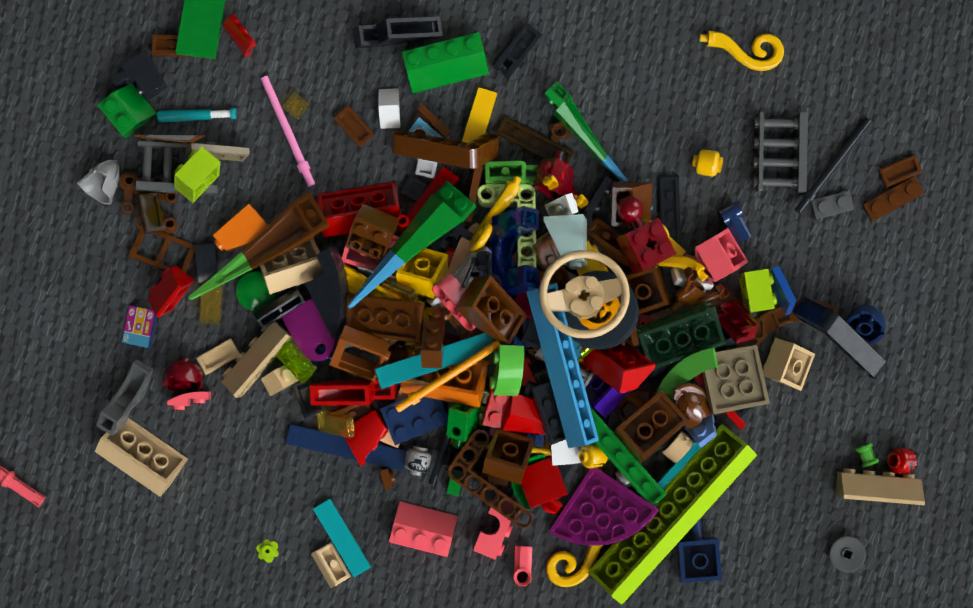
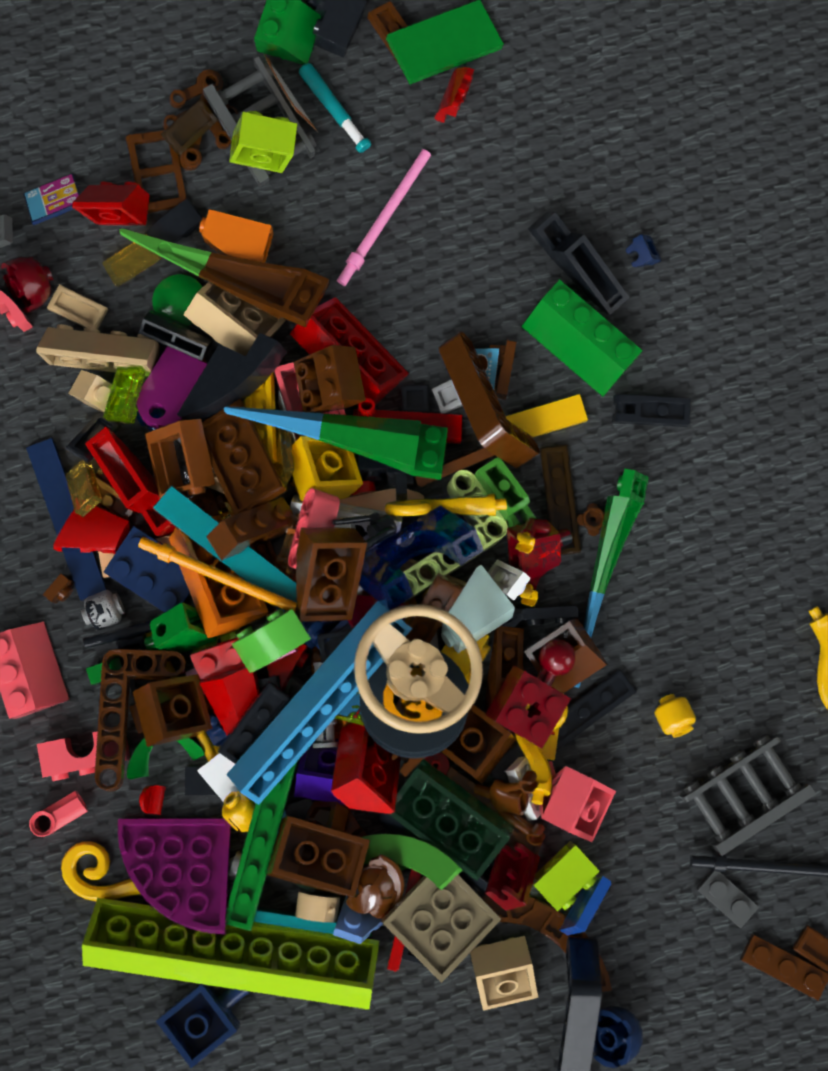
camera: 60 degrees right, 5 degrees down
(101, 181) = (190, 52): light grey helmet -> none
(220, 152) = (309, 158): dark tan tile -> none
(296, 105) = (418, 208): clear yellow tile -> none
(354, 126) = (439, 286): reddish brown tile -> none
(389, 108) = (486, 311): white slope -> none
(543, 483) = (169, 773): red tile -> none
(733, 220) = (629, 791): dark blue piece -> none

